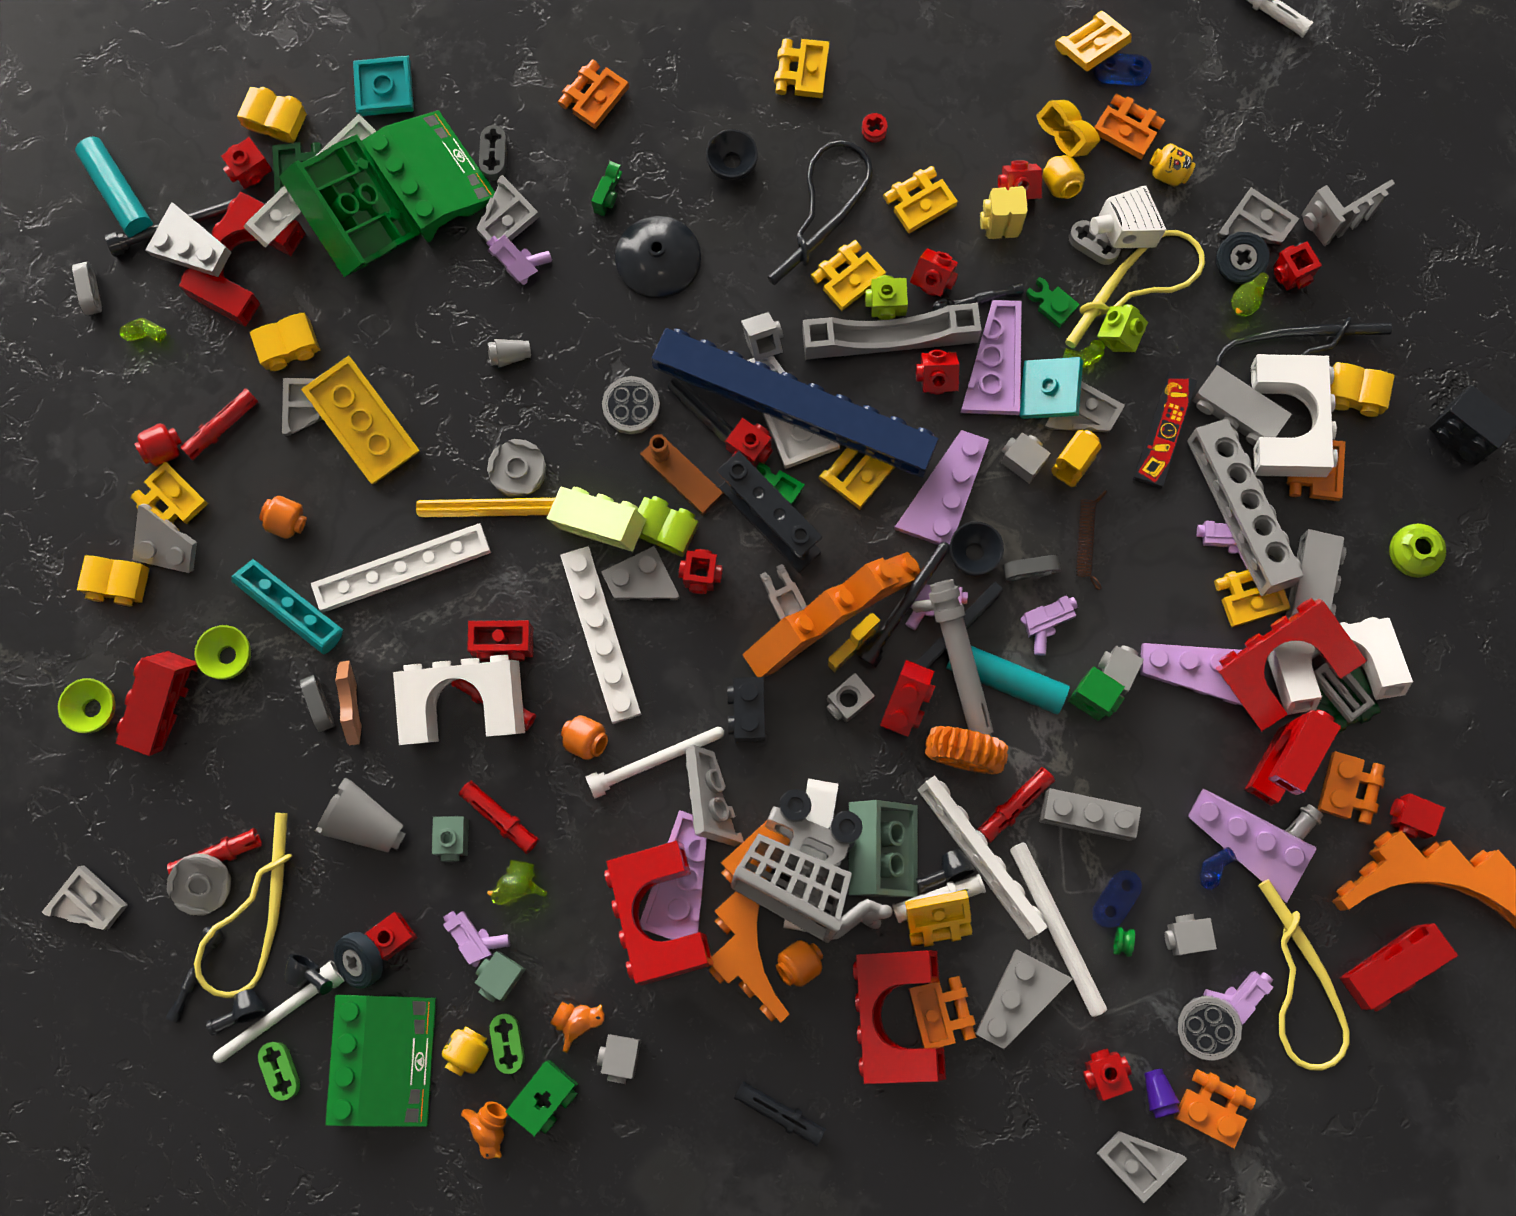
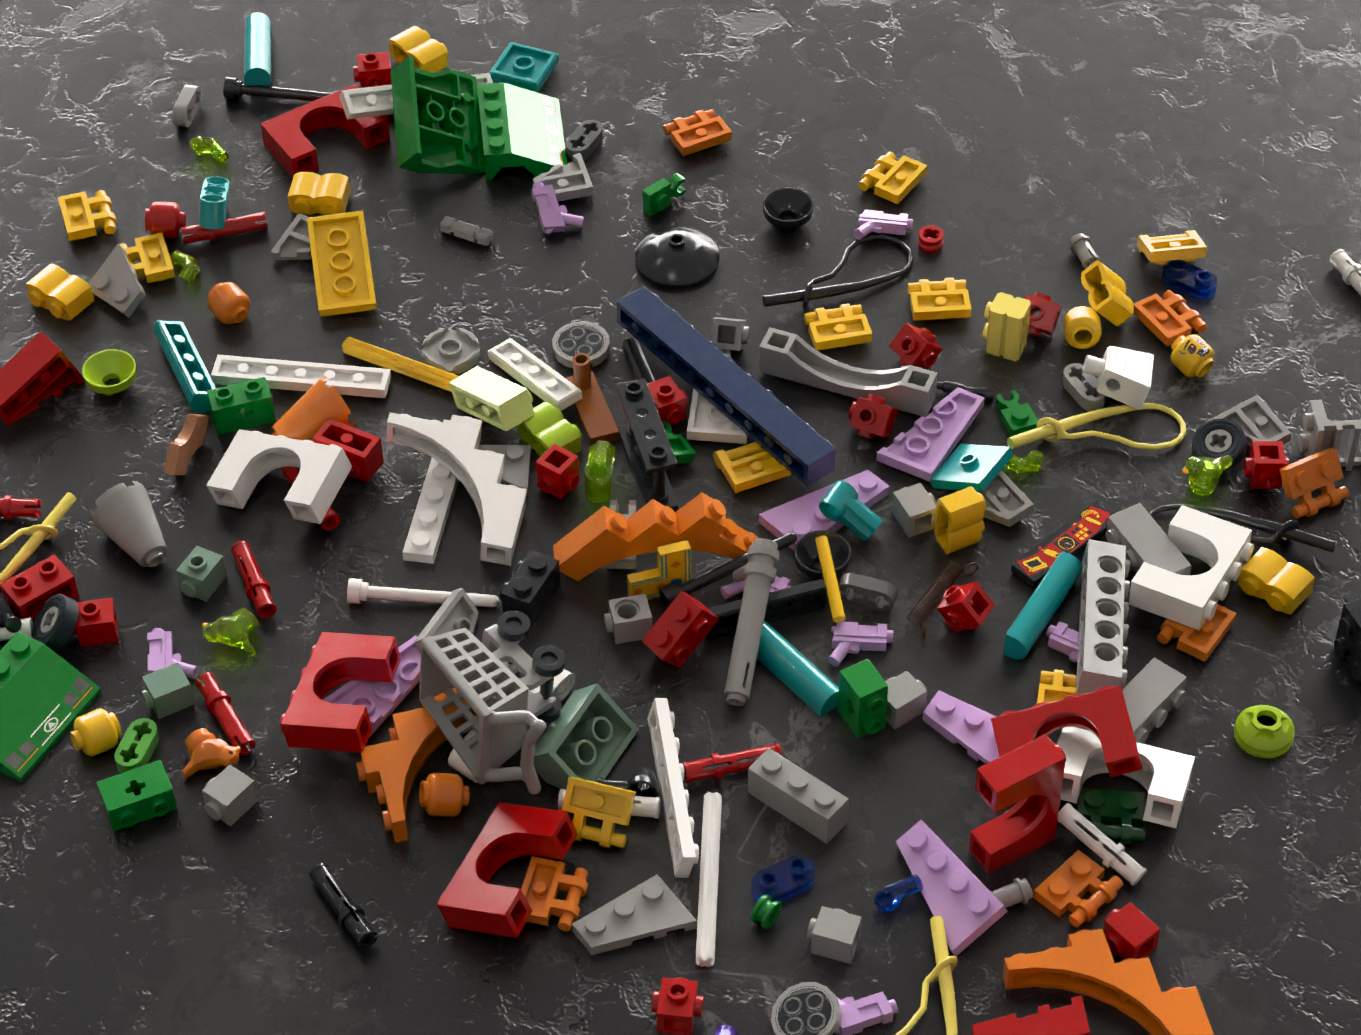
camera: 25 degrees right, 30 degrees down
(69, 477) = (78, 217): none -> yellow plate
(187, 243) = (286, 99): wing -> none
(197, 407) = (214, 202): none -> teal beam
(213, 483) = (188, 263): none -> clear neon green arm
(316, 927) = (33, 587): none -> red brick
(317, 703) = (159, 438): dark grey beam -> none
(369, 632) = (241, 406): none -> green brick
(446, 617) = (312, 411): none -> orange cone
(448, 318) = (466, 231): none -> light grey axle
(487, 1128) = (72, 797): orange animal -> none
(506, 352) = (499, 268): light grey cone -> none
(558, 969) = (219, 704): none -> red pin
(584, 737) = (369, 550): orange head -> none
(611, 463) = (534, 374): none -> white tile
(637, 608) = (480, 471): none -> white arch
(731, 545) = (599, 471): none -> clear neon green piece
(819, 131) = (878, 222): none -> lavender piece
(887, 297) = (861, 348): lime brick -> none
(966, 750) = (710, 690): orange gear -> none
(973, 491) = (843, 505): none -> teal piece
(1001, 577) = (830, 579): none -> yellow bar
(1017, 80) = (1081, 246): none -> light grey pin
(1122, 328) = (1067, 449): lime brick -> none
(1126, 548) = (965, 606): none -> red brick
(1184, 511) = (1042, 606): none -> teal brick
(1335, 698) = (1117, 817): light grey tile -> none
(1344, 266) = (1310, 474): none -> orange plate
(1367, 744) = (1130, 871): none -> white pin

